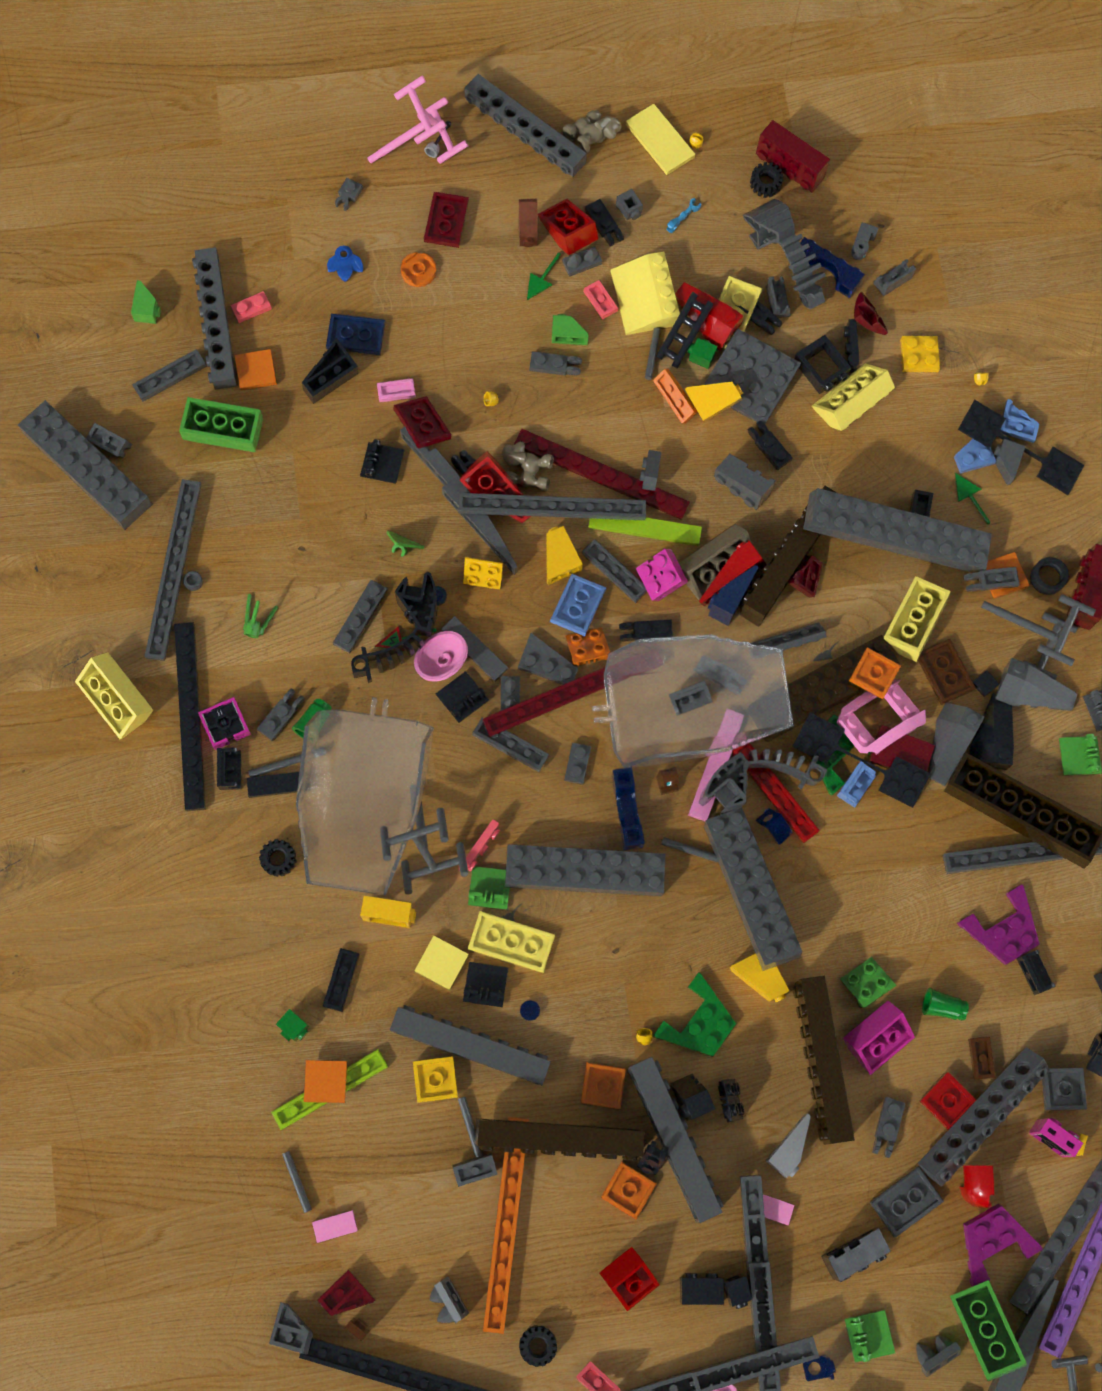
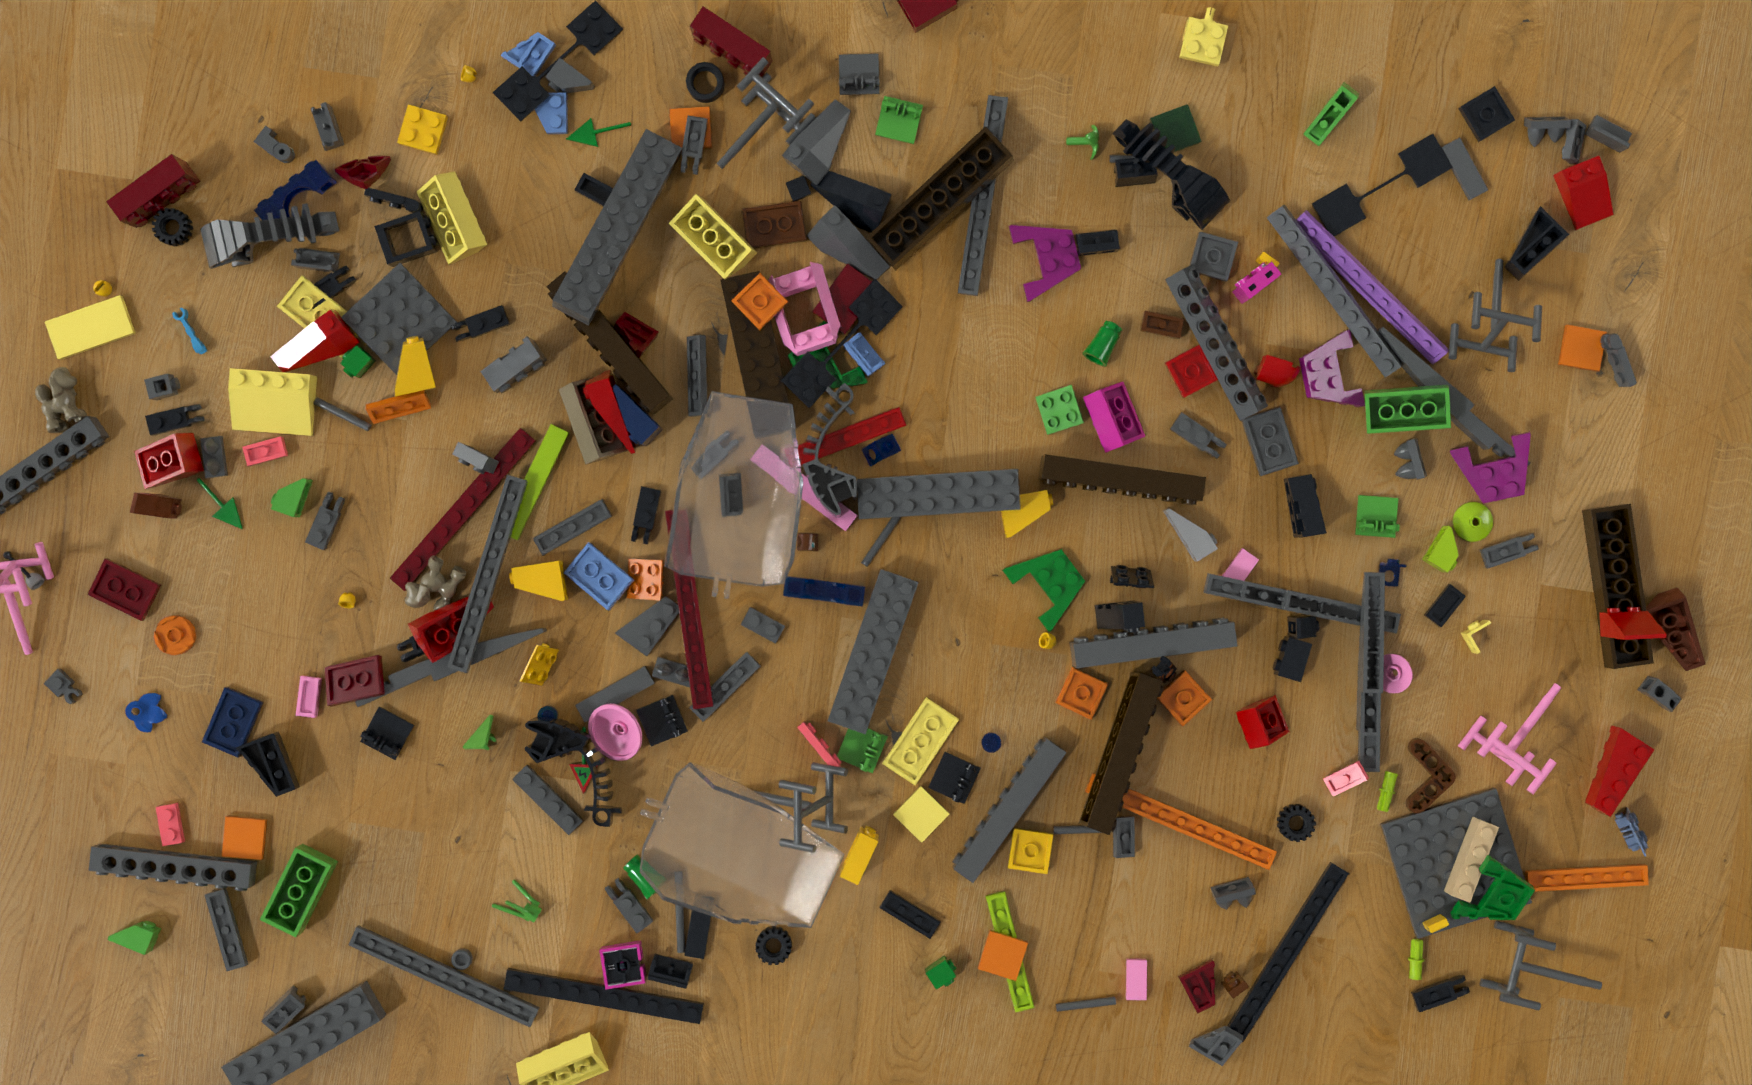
camera: 65 degrees left, 15 degrees up
(662, 575) = (592, 482): dark pink piece -> none
(695, 325) = (326, 362): black bar -> none

